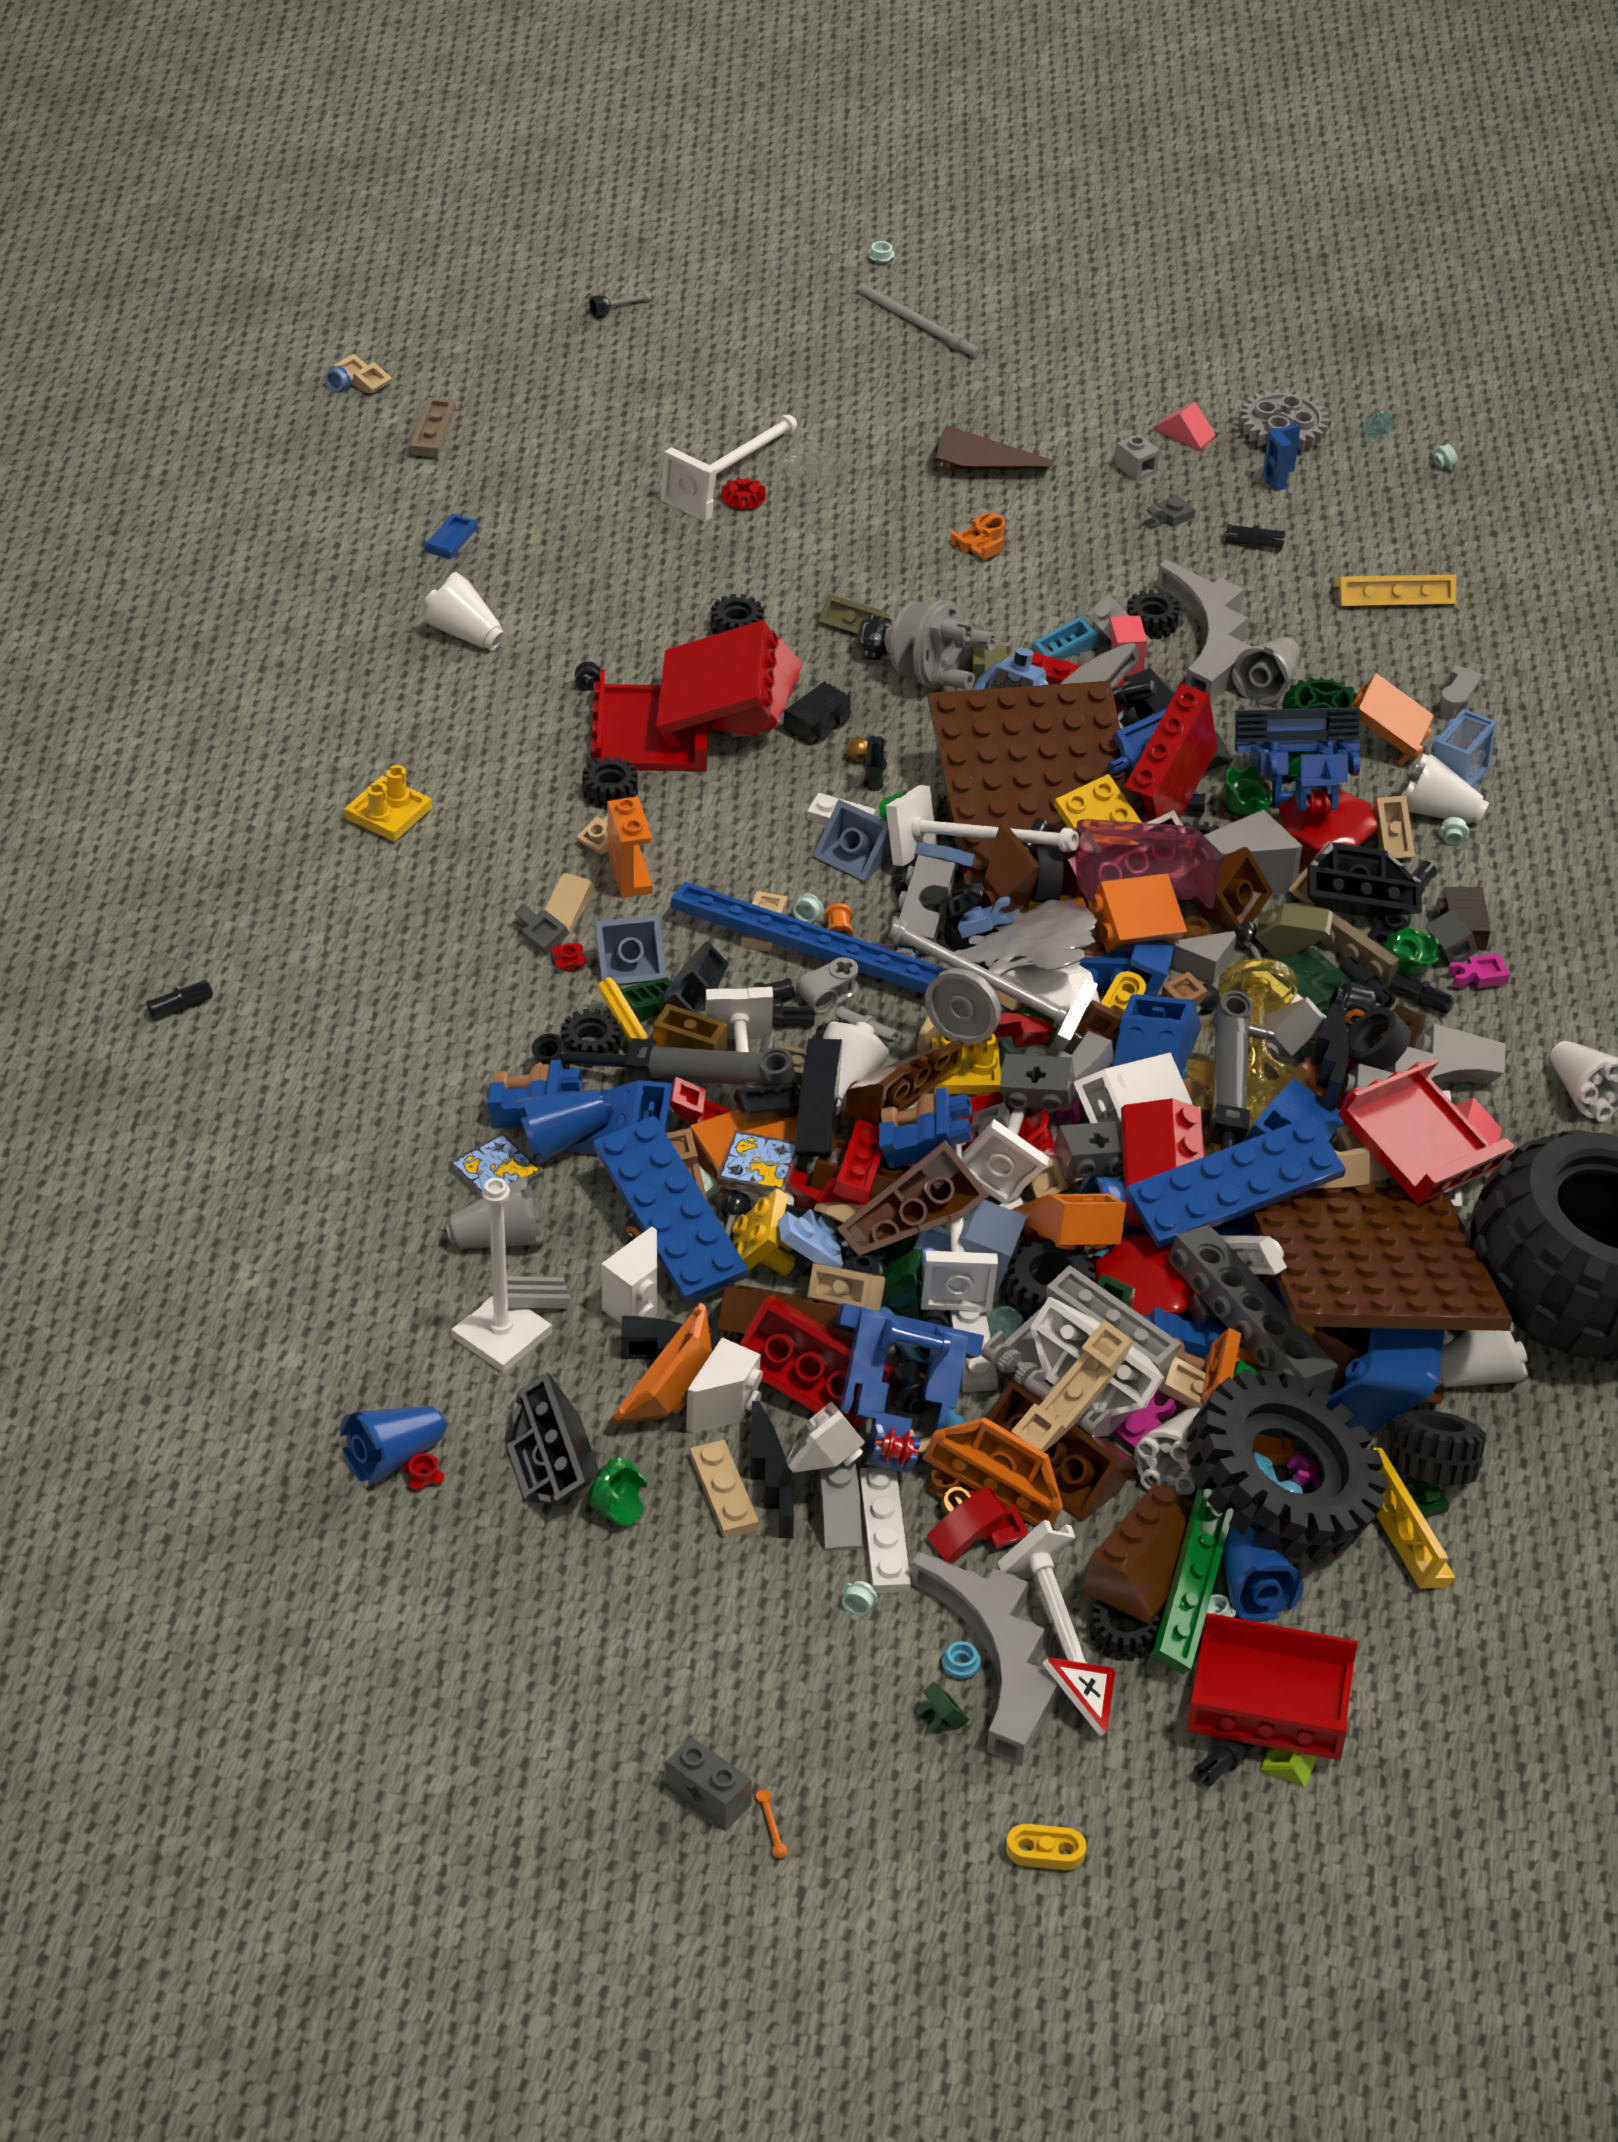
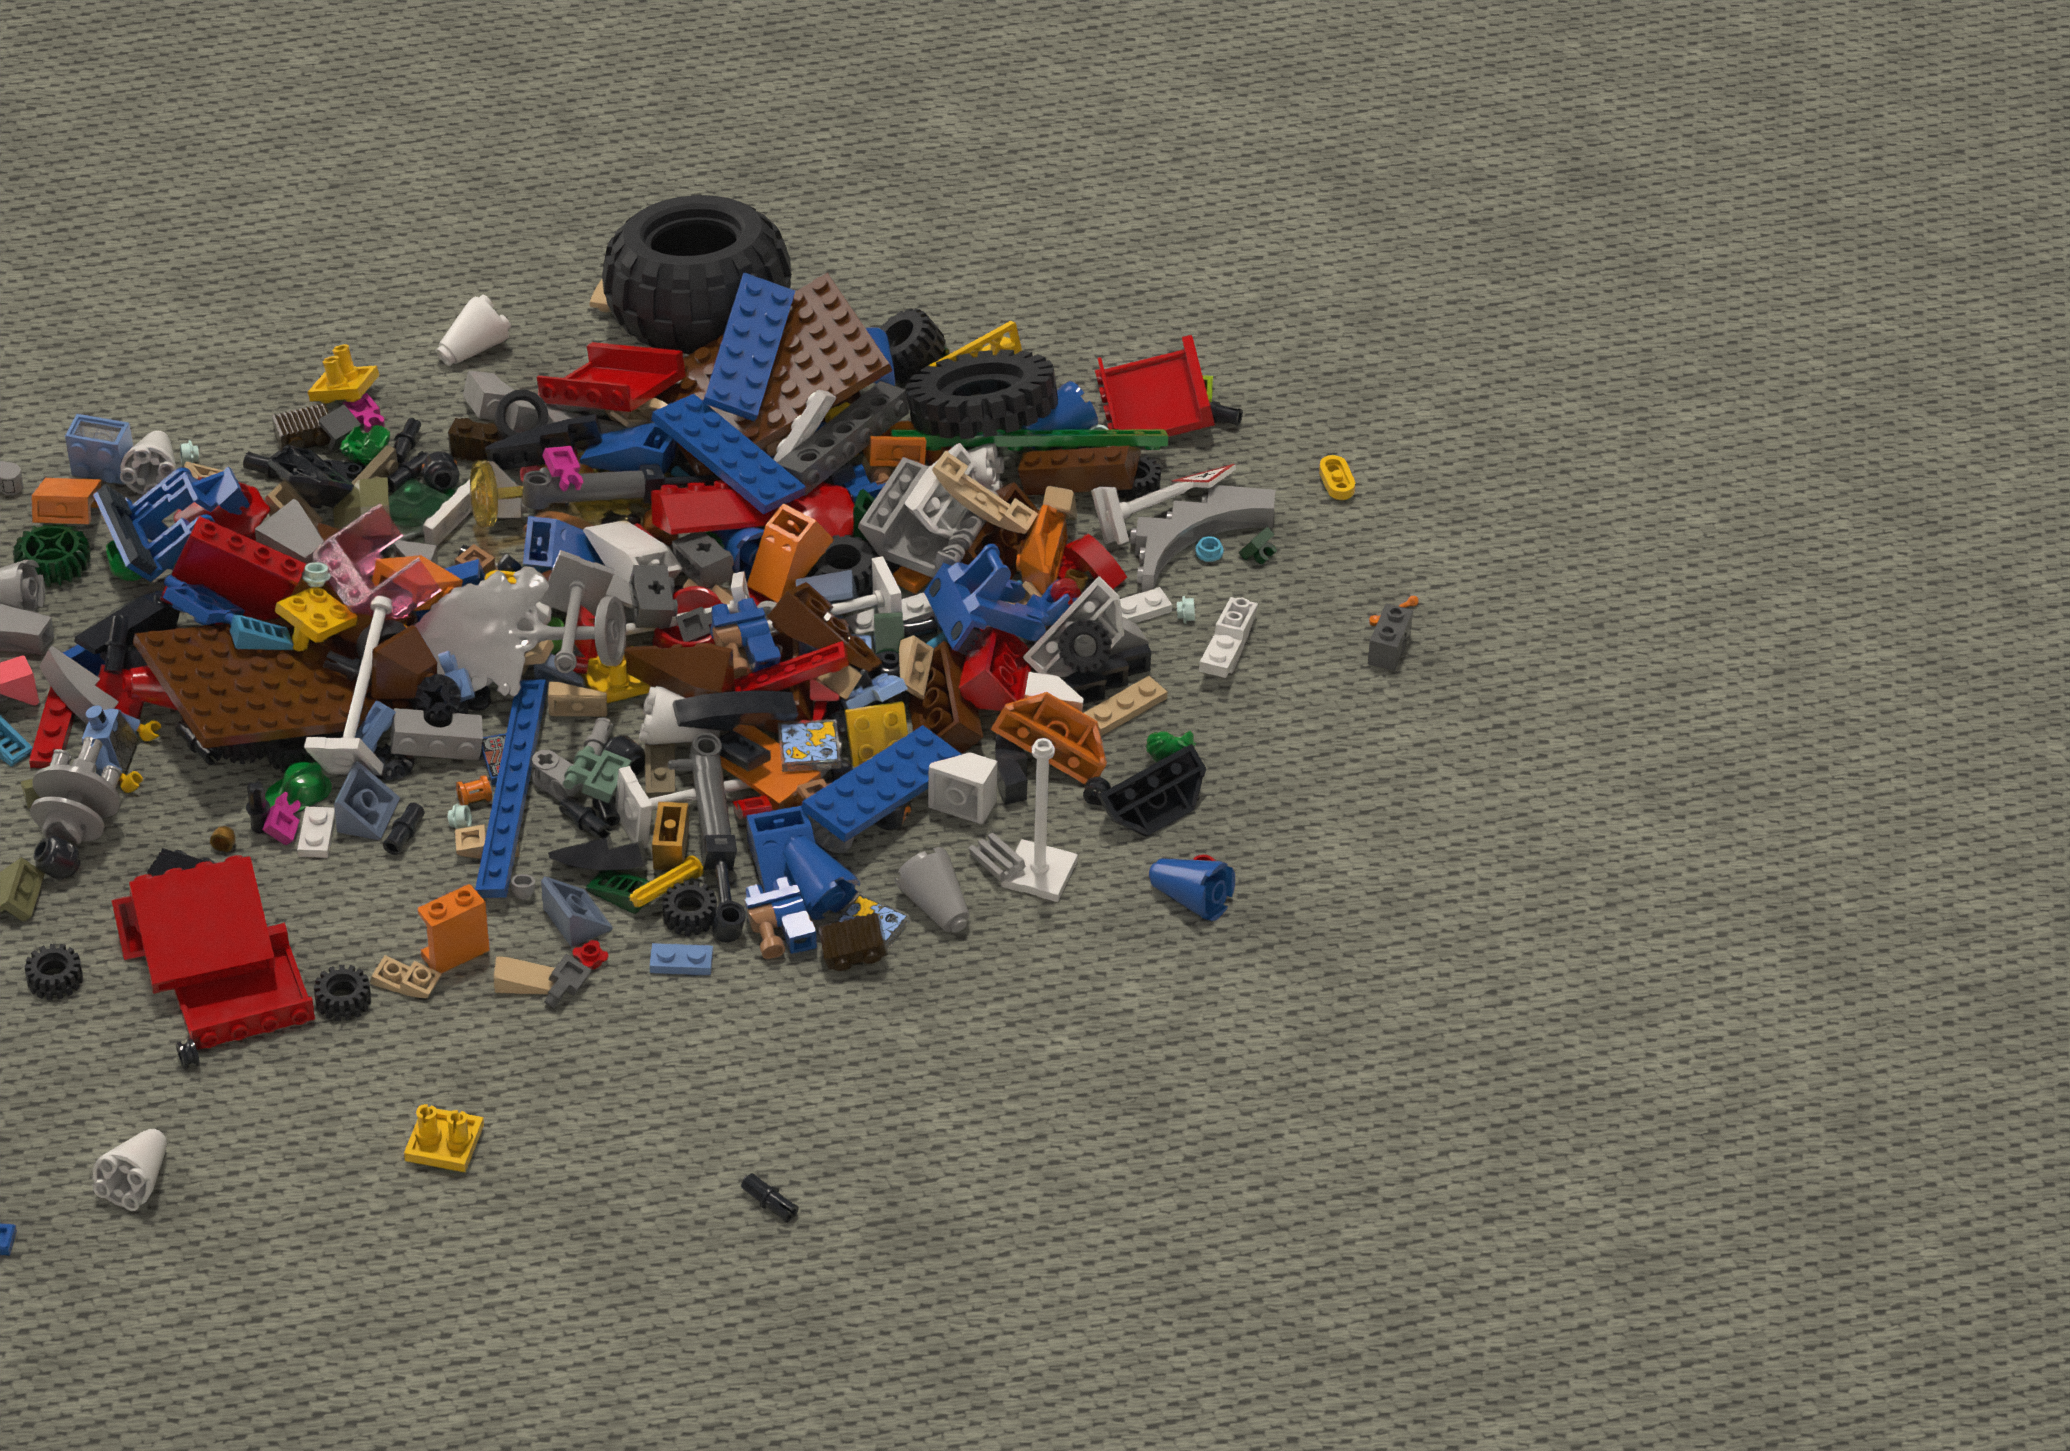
camera: 110 degrees left, 0 degrees up
(462, 1134) = (853, 942): none -> dark brown brick
(529, 1020) = (681, 959): none -> medium blue plate
(591, 1410) = (1098, 784): none -> black bush
(682, 924) = (522, 886): none -> light grey hinge
(777, 1616) = (1229, 637): none -> white slope
(784, 1422) = (1068, 652): none -> black tyre
(796, 1003) = (603, 778): none -> sand green plate
(811, 867) = (403, 828): none -> black pin
(859, 787) = (280, 820): none -> dark pink plate
(1076, 1507) = (1062, 500): none -> tan slope
(1091, 759) = (257, 634): none -> dark azure slope
(1143, 809) = (316, 574): none -> light aqua plate
(1244, 1019) = (563, 463): none -> dark pink plate
(1399, 1220) = (749, 347): none -> blue plate
(1529, 955) = (342, 378): none -> yellow plate

